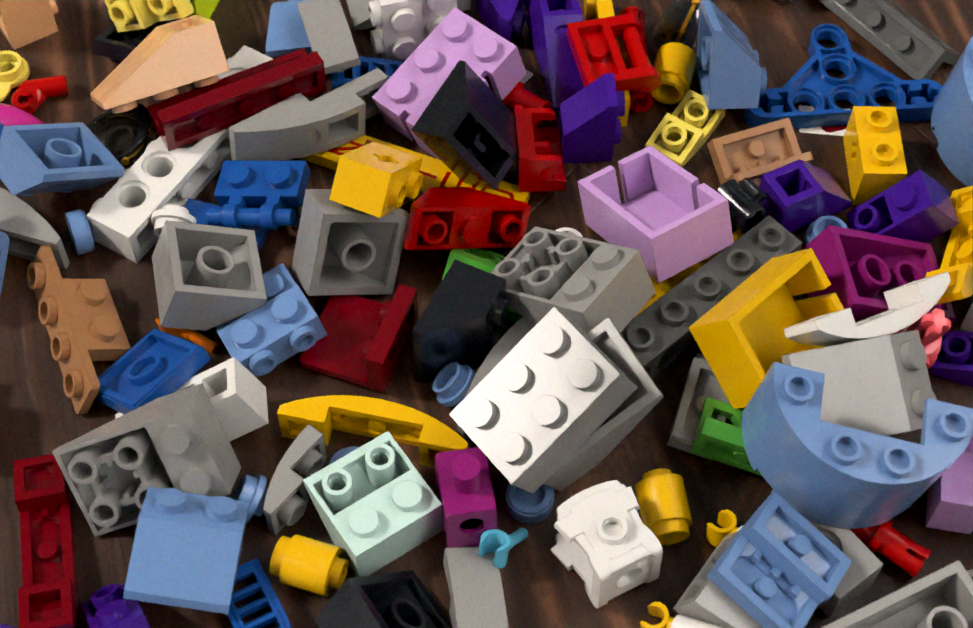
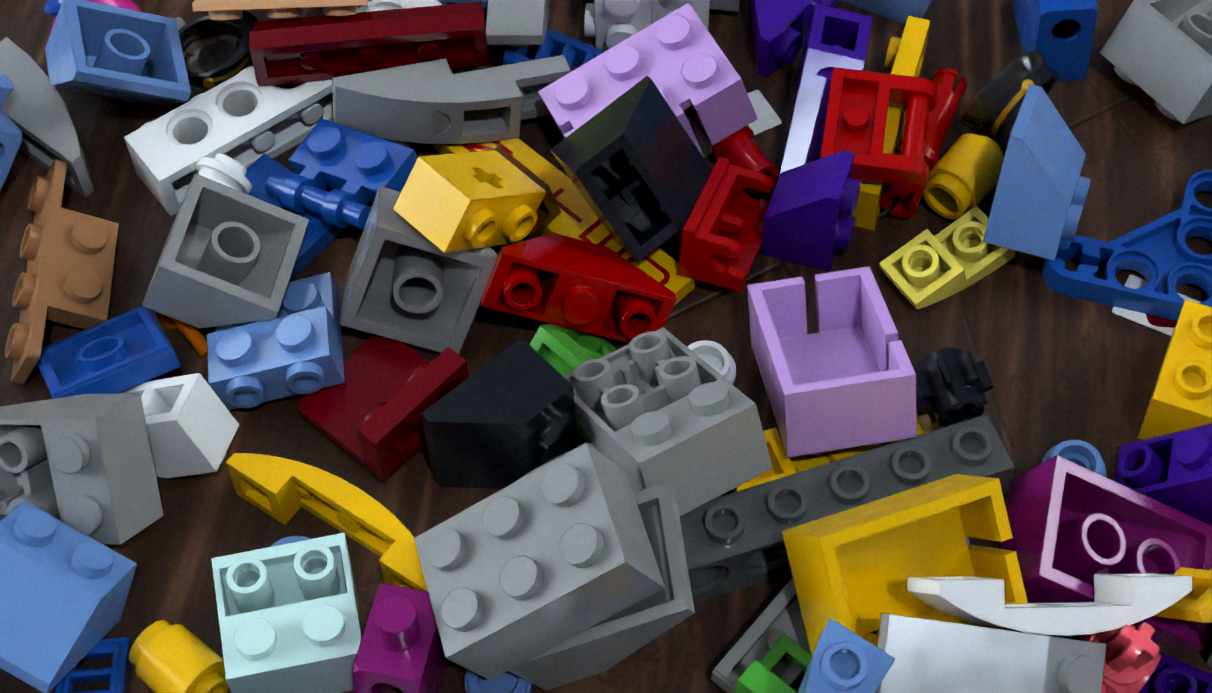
camera: 25 degrees right, 0 degrees up
(80, 231) = (114, 156): medium blue tile -> none
(254, 491) = (155, 556): medium blue plate -> none
(287, 494) = (186, 574): light grey slope -> none
(453, 383) = (467, 492): medium blue plate -> none
(756, 151) = (1028, 326): medium nougat bracket -> none
(801, 194) = (1056, 399): dark purple slope -> none

